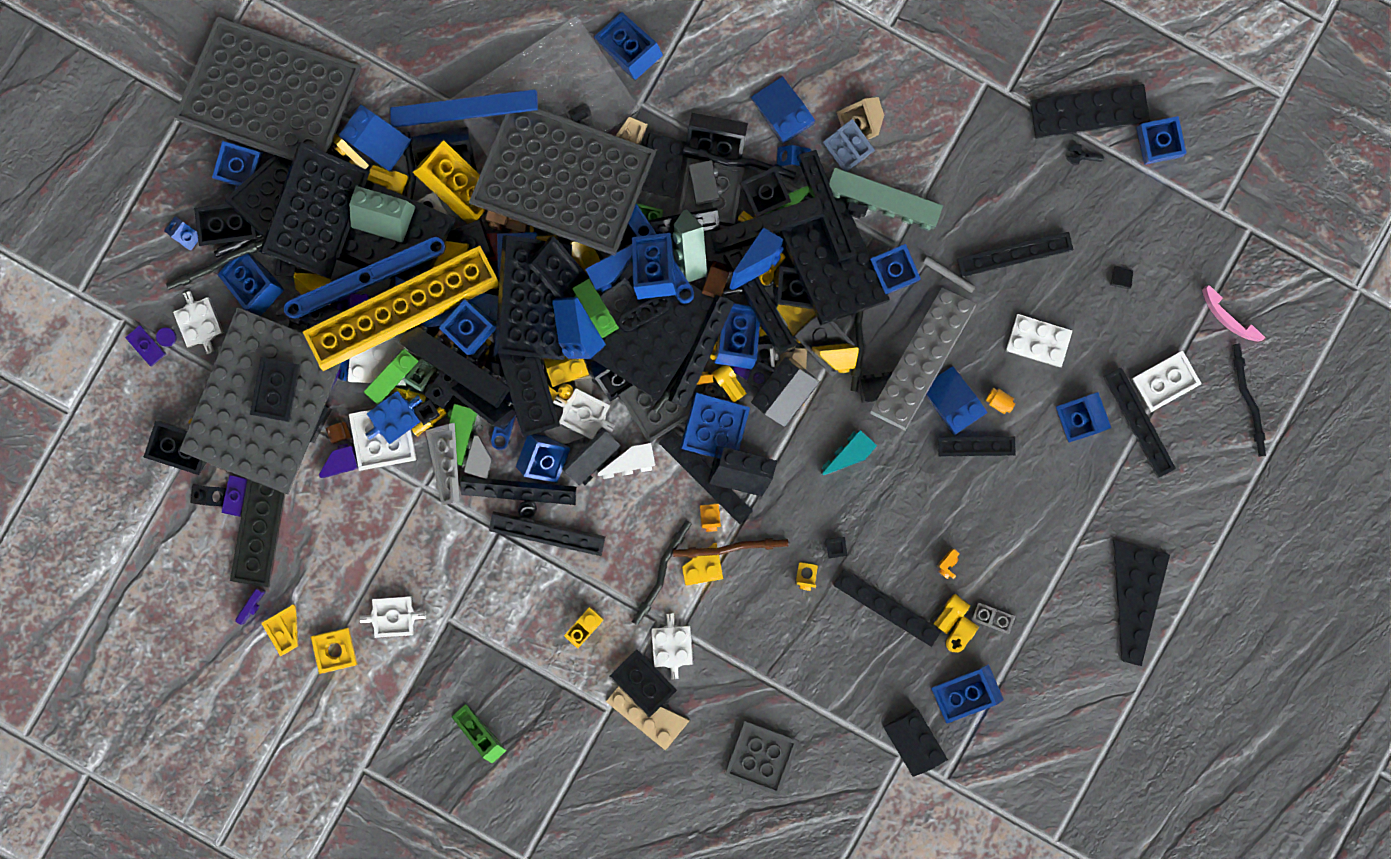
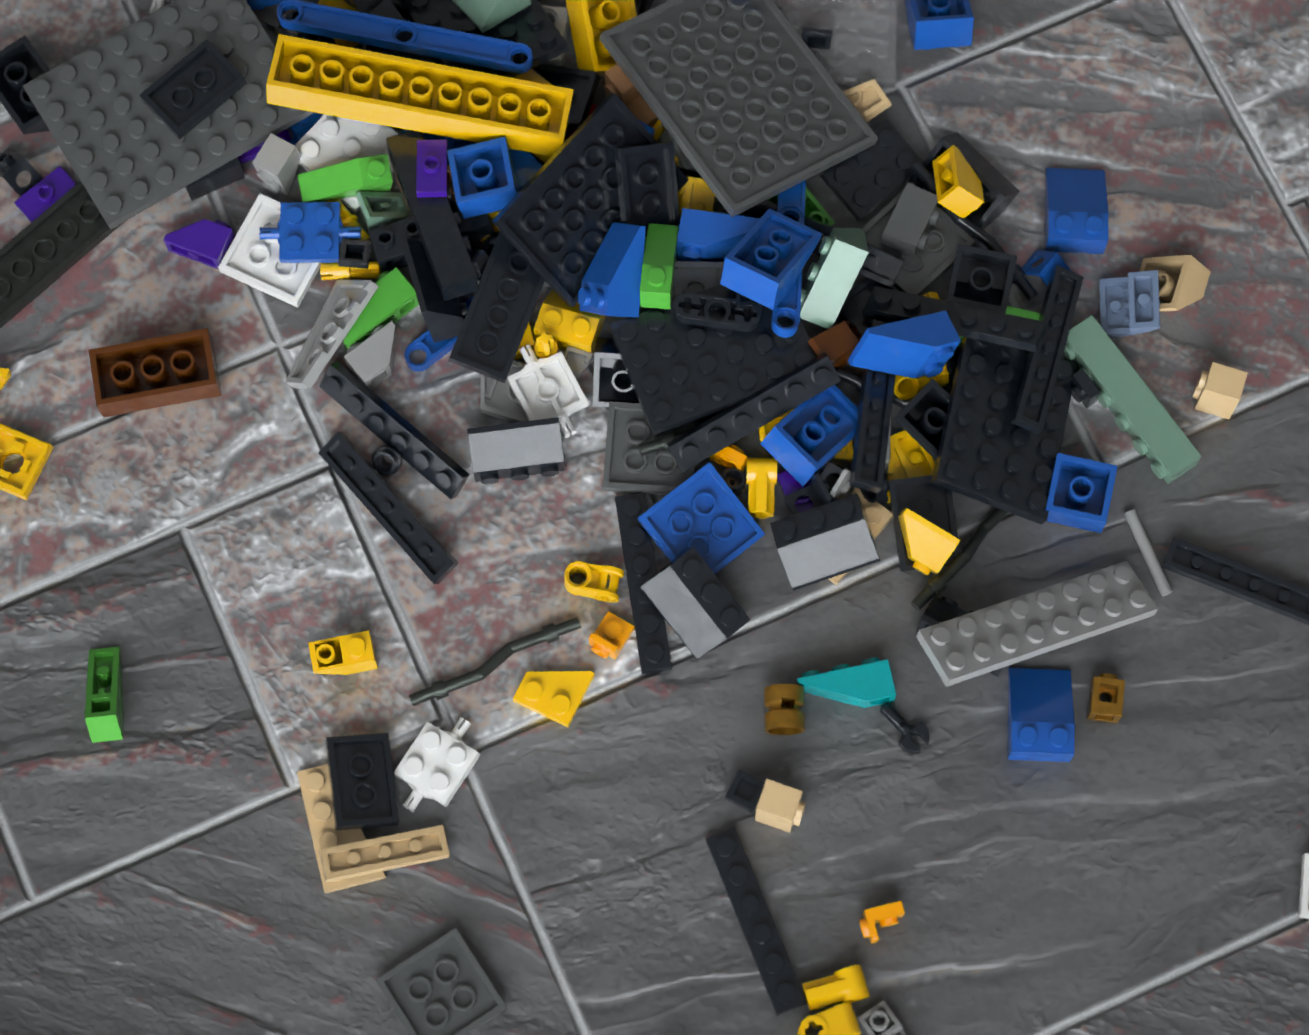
camera: 40 degrees right, 15 degrees down
(338, 432) = (229, 206): reddish brown leg -> none
(347, 394) = (277, 164): none -> light grey slope
(372, 551) = (154, 372): none -> reddish brown brick
(393, 617) = (116, 472): white plate -> none
(437, 343) = (431, 168): none -> dark purple plate
(542, 458) = (453, 407): blue slope -> none
(634, 458) = (566, 492): white slope -> none
(682, 494) = (595, 581): none -> yellow piece
(682, 711) = (384, 853): none -> tan plate
(692, 552) = (555, 662): reddish brown bar -> none
(714, 146) = (957, 183): none -> yellow slope
(806, 584) = (668, 806): yellow bracket -> none
(828, 499) = (784, 720): none -> pearl gold wheel
(861, 545) = (780, 806): none -> tan brick
(891, 456) = (906, 729): none -> black bar
(928, 162) = (1219, 390): none -> tan brick
(976, 446) = (1028, 793): black plate -> none
(988, 370) = (1112, 687): none -> pearl gold brick
(1000, 400) = (1102, 756): light orange brick -> none
(1039, 340) = (1209, 718): white plate -> none
(1083, 417) = (1201, 857): blue slope -> none
(1139, 422) = (1274, 920): black plate -> none

